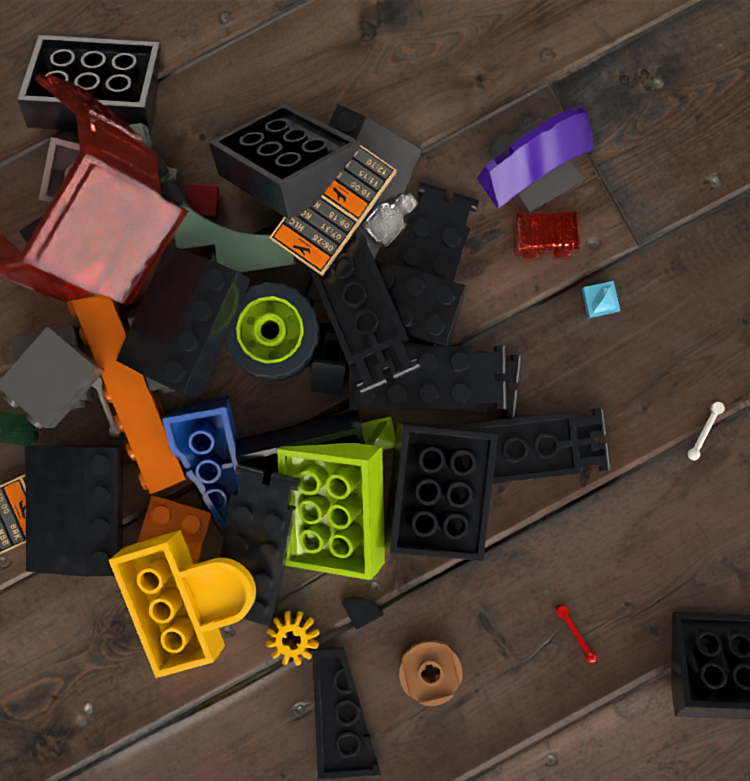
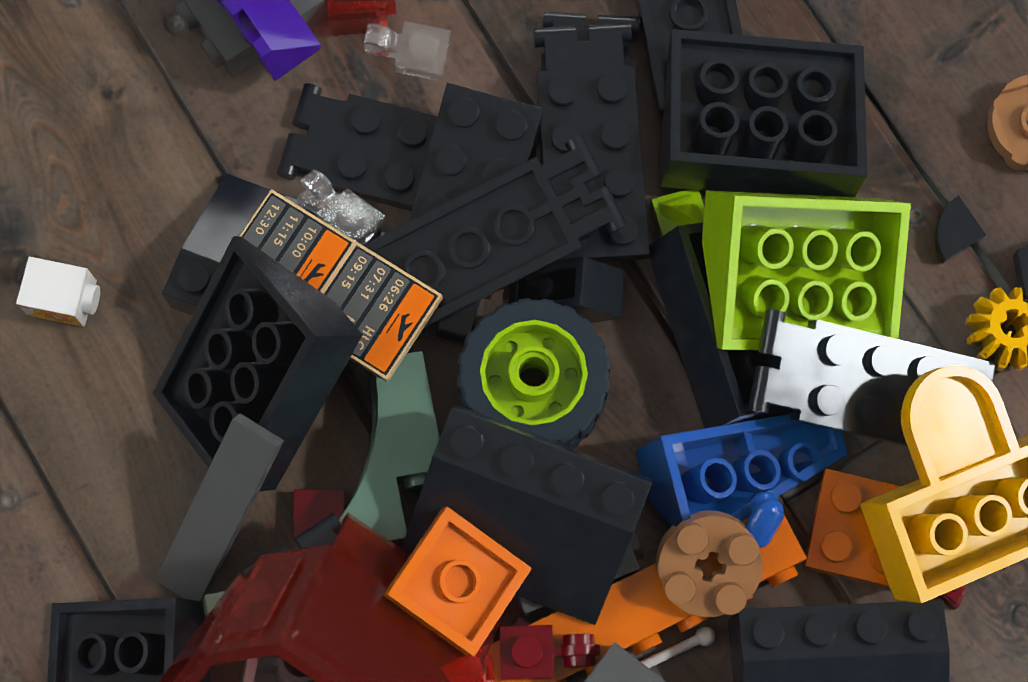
camera: 100 degrees left, 10 degrees down
(103, 320) = (530, 652): none -> dark red plate
(128, 431) = (725, 589): none -> medium nougat plate
(136, 273) = (457, 582): none -> orange plate
(167, 465) = (765, 517): none -> blue arm
(199, 136) = (219, 508): none -> dark grey tile
(347, 44) = (58, 292): none -> white brick
(498, 272) = (417, 50): none -> clear plate

